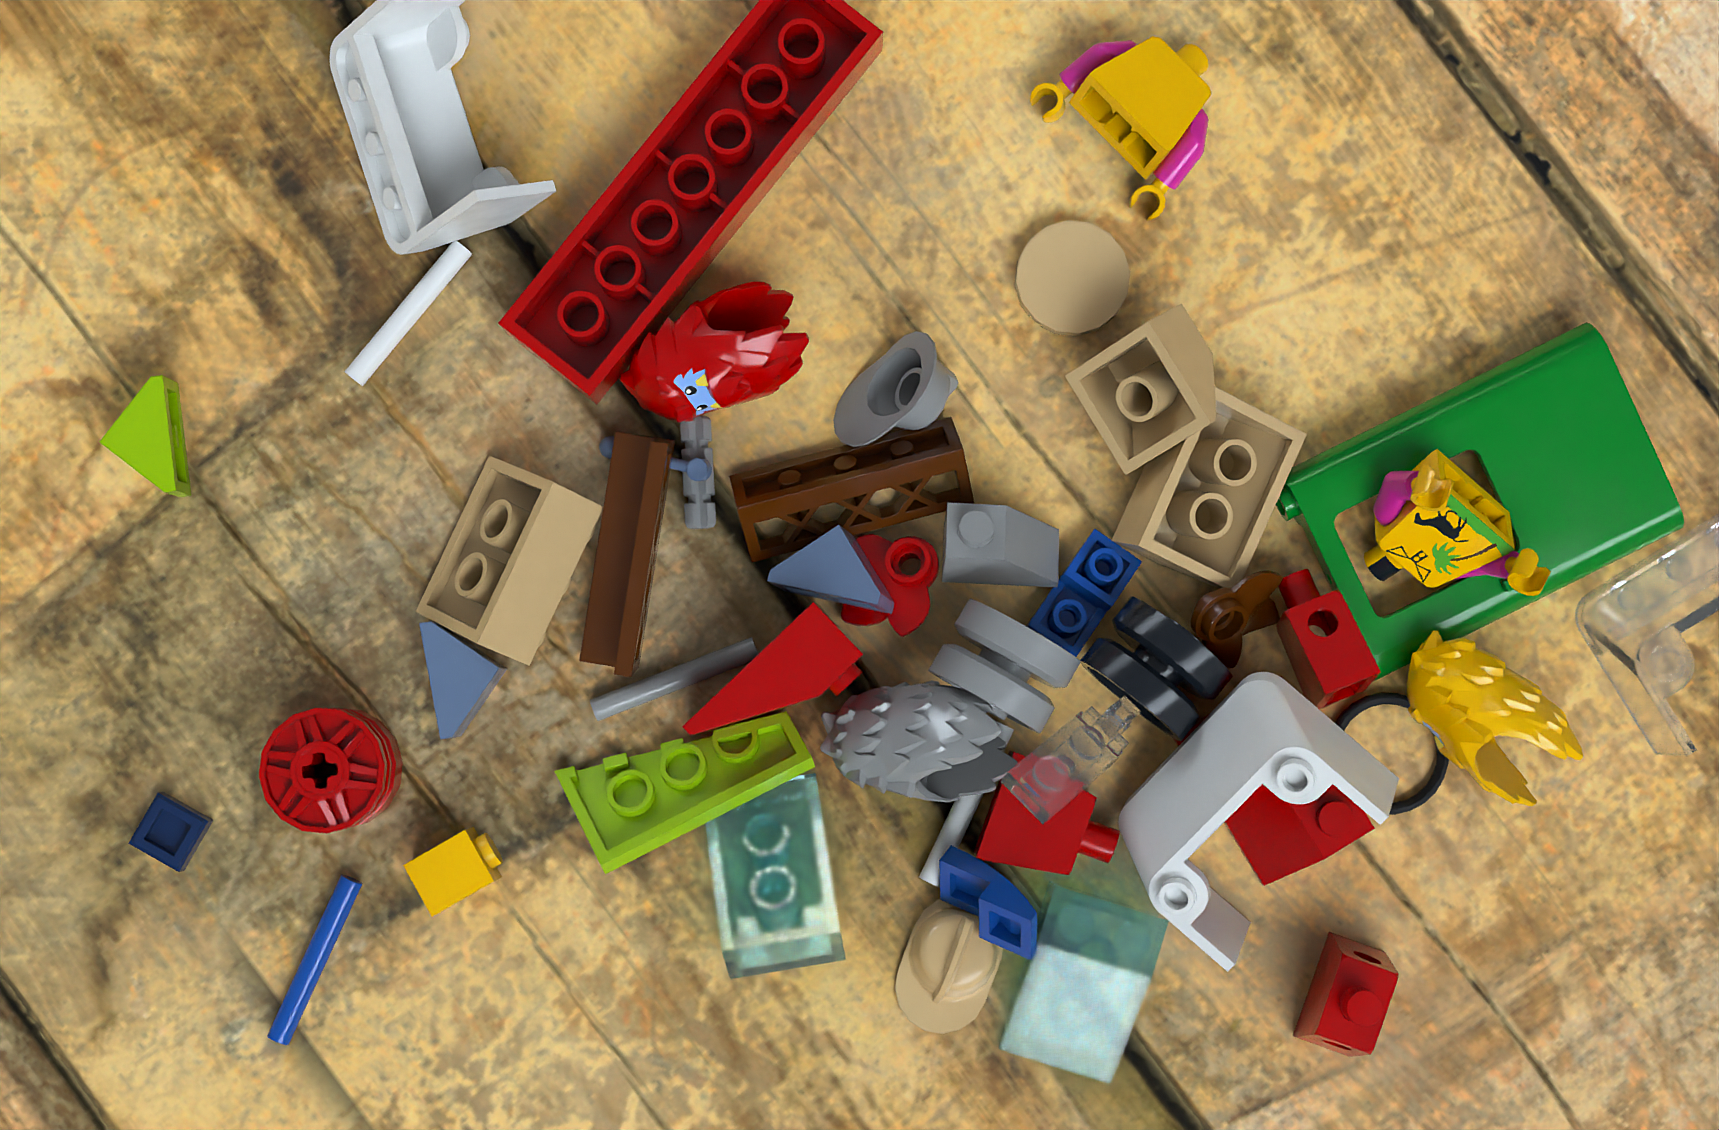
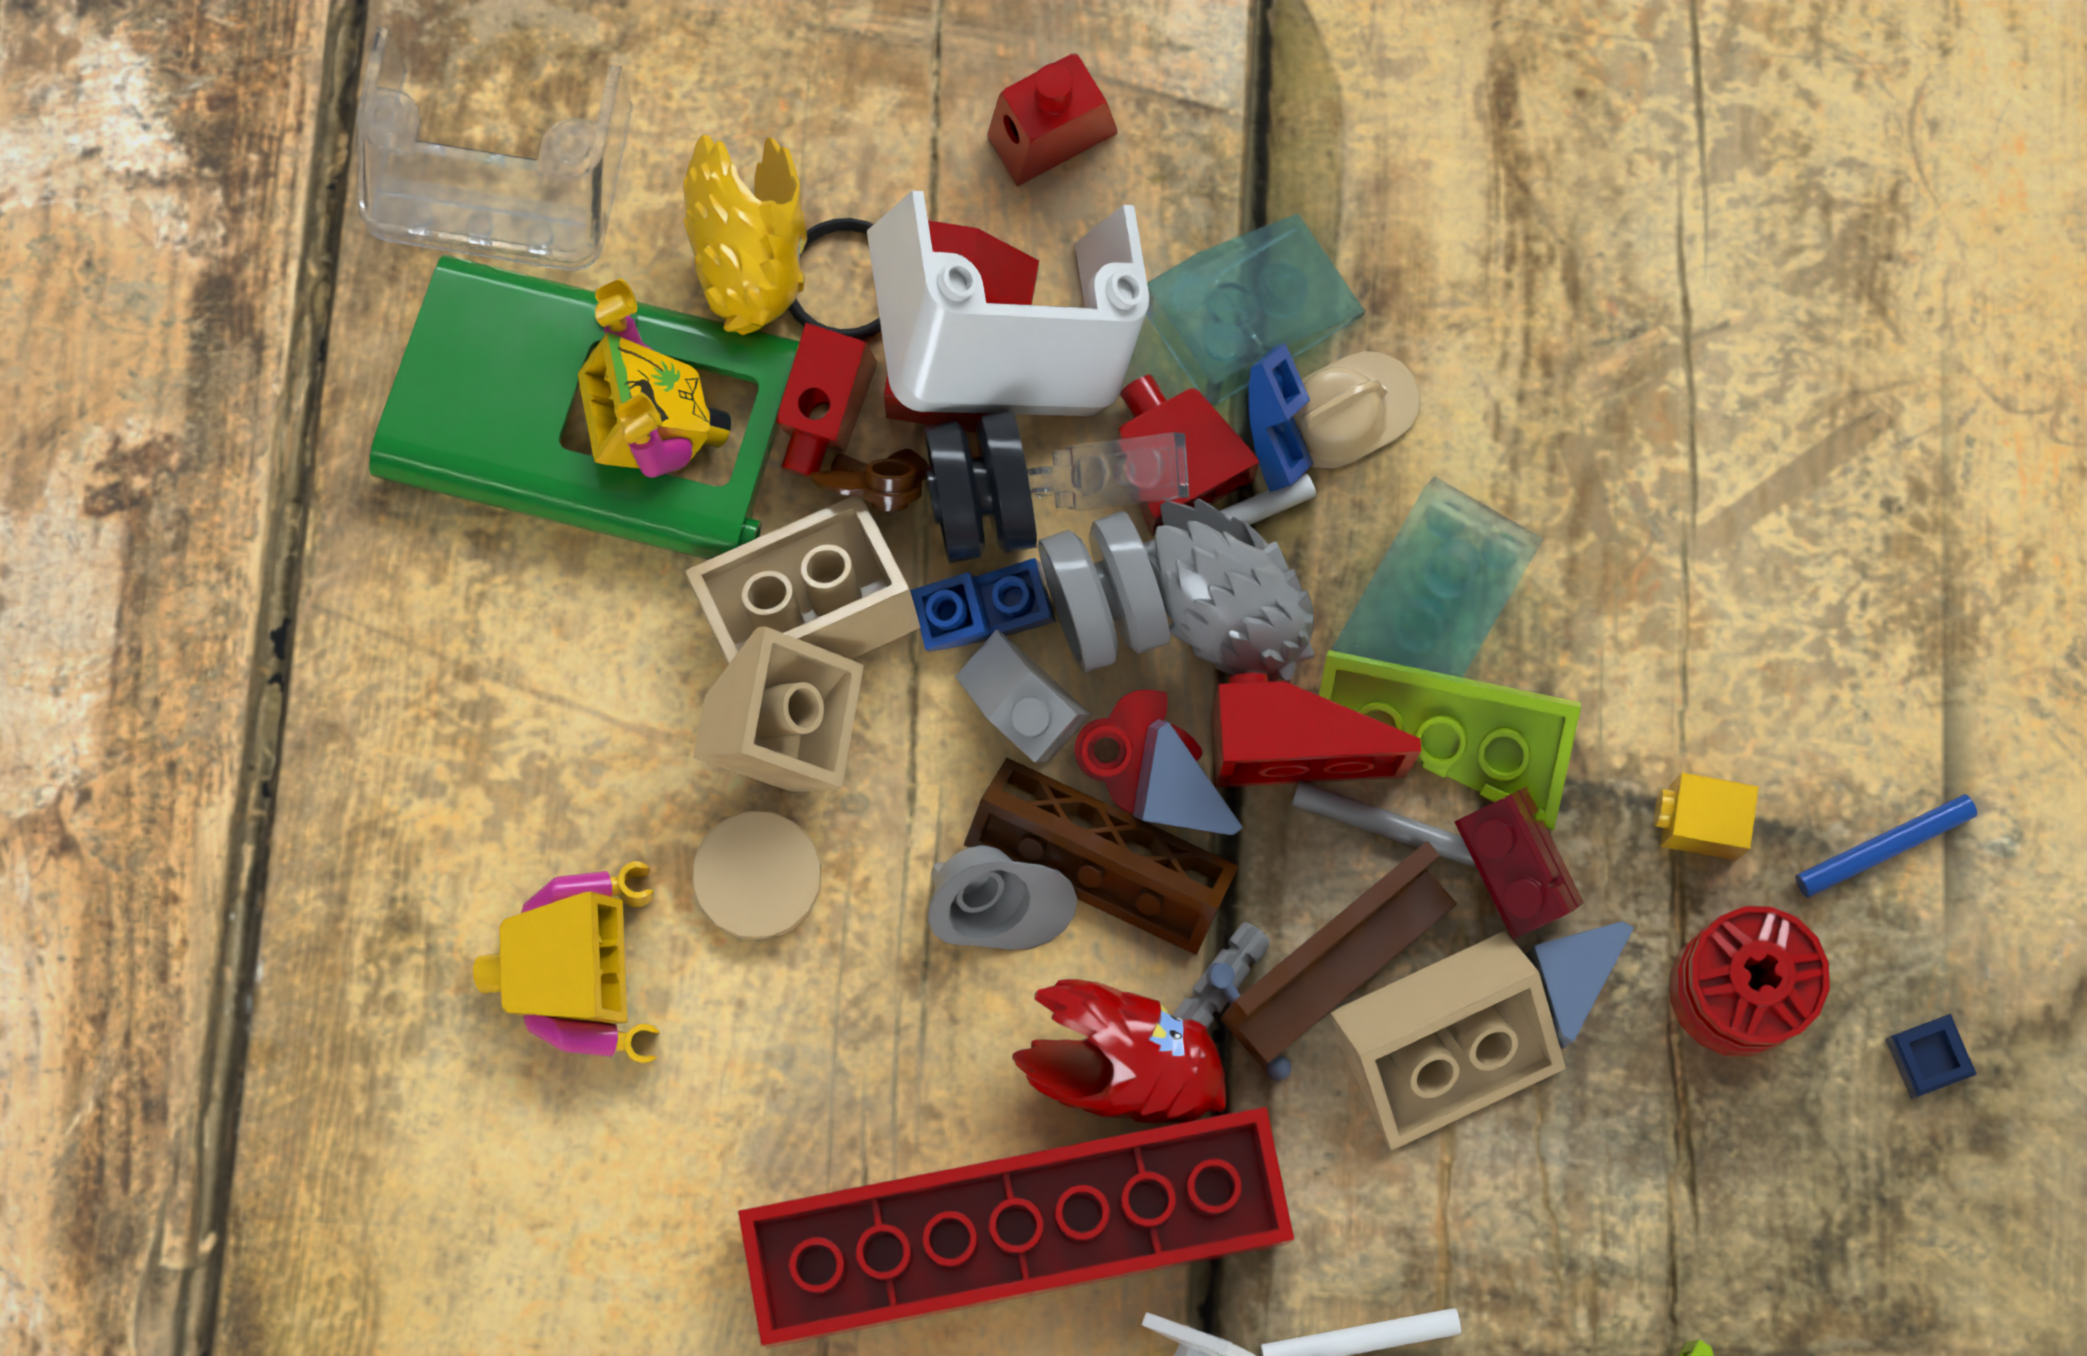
camera: 135 degrees left, 10 degrees down
(556, 720) = (1519, 863): none -> dark red brick

